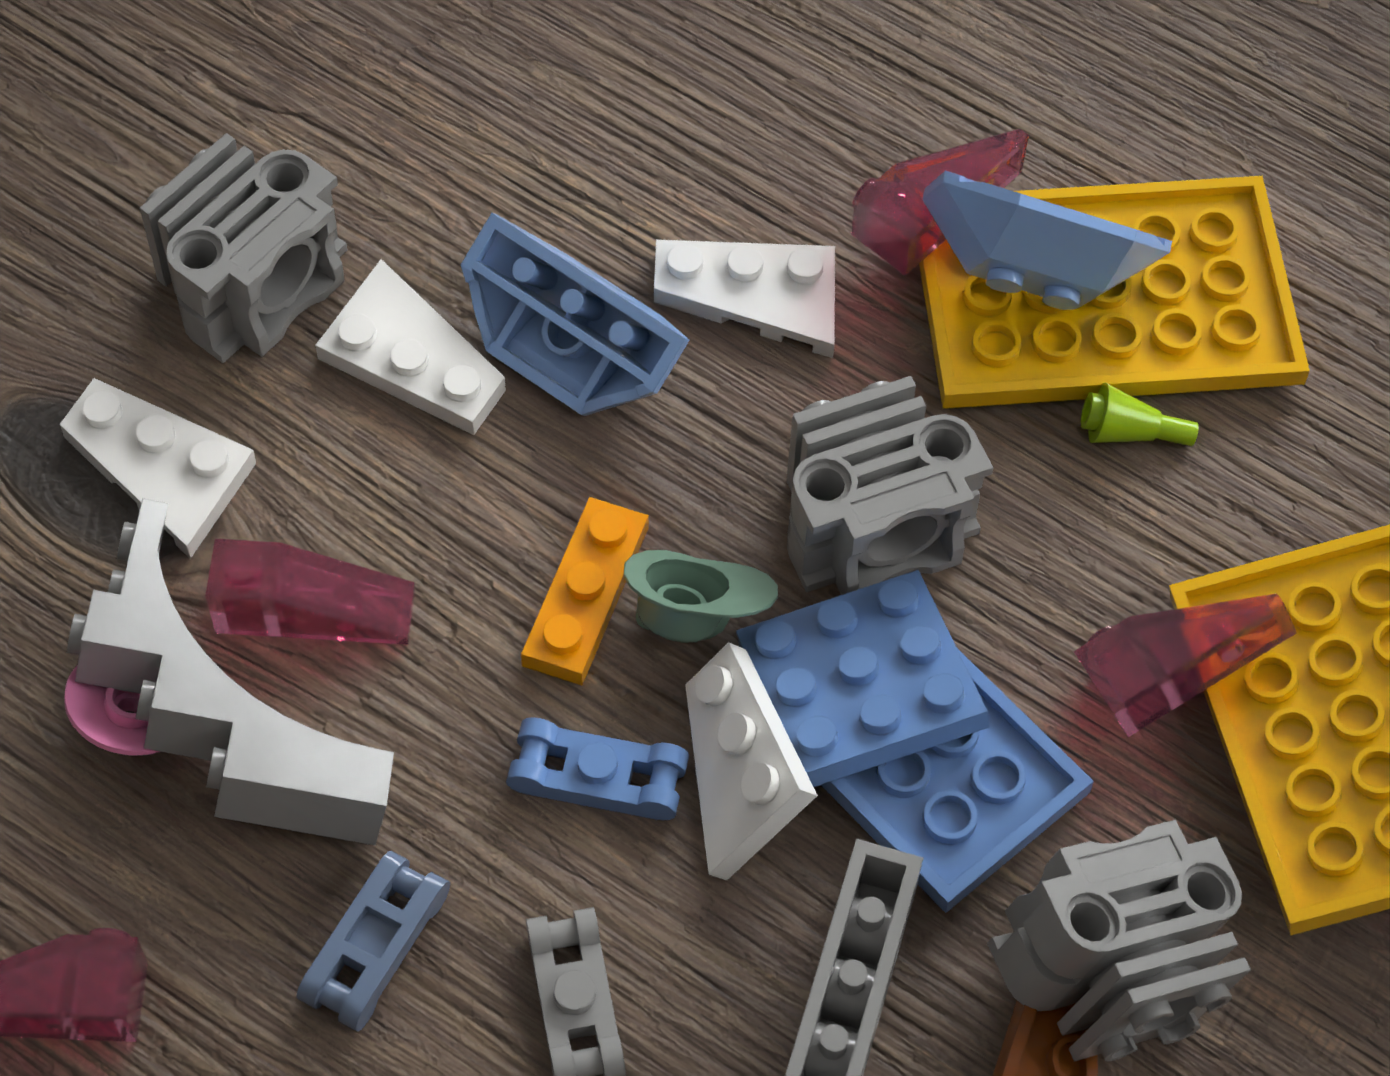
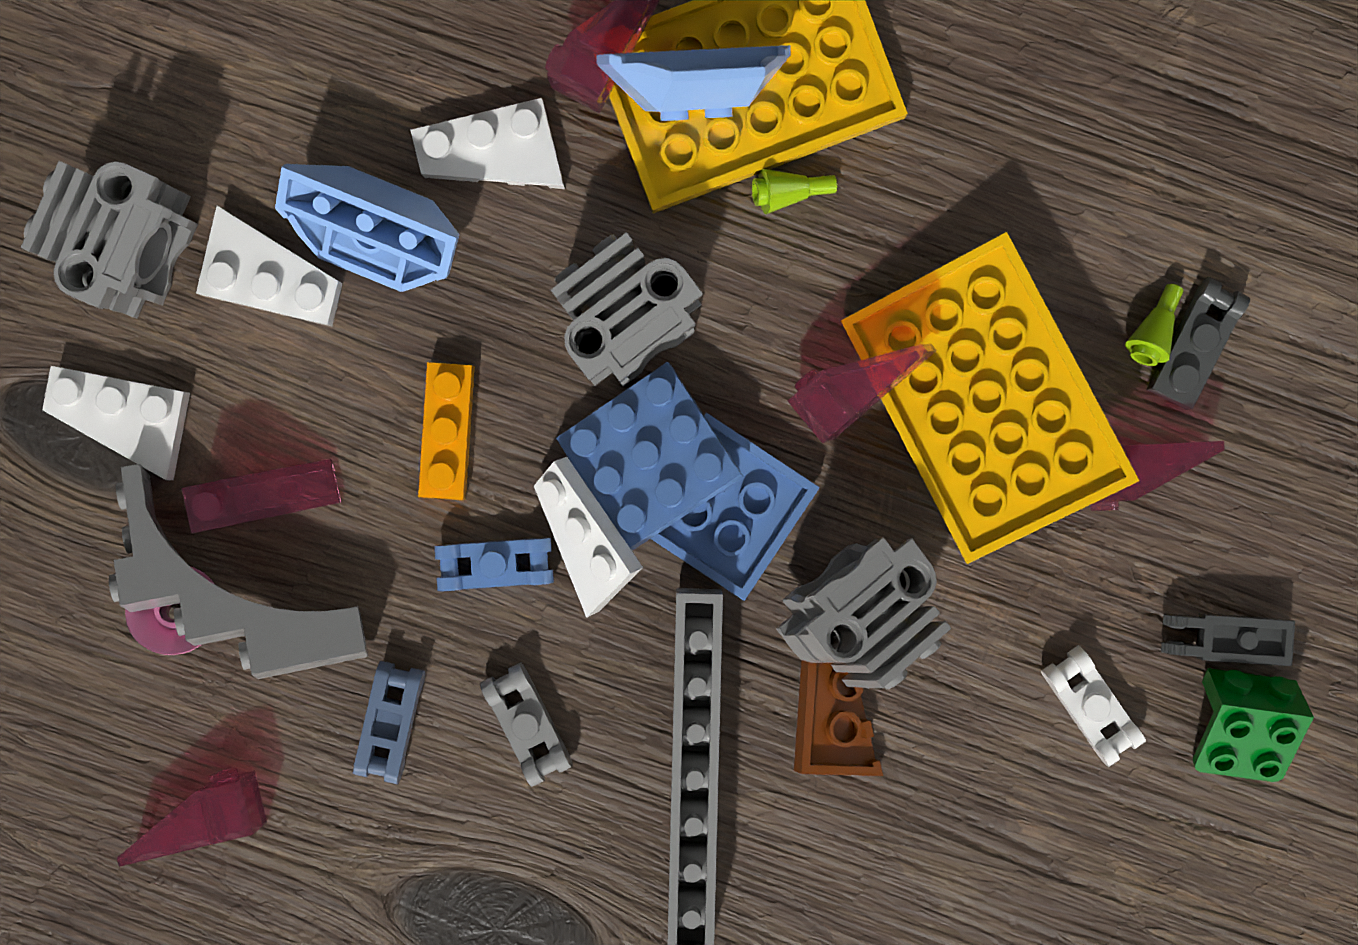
camera: 15 degrees left, 30 degrees up
(693, 596) = (522, 423): sand green piece -> none

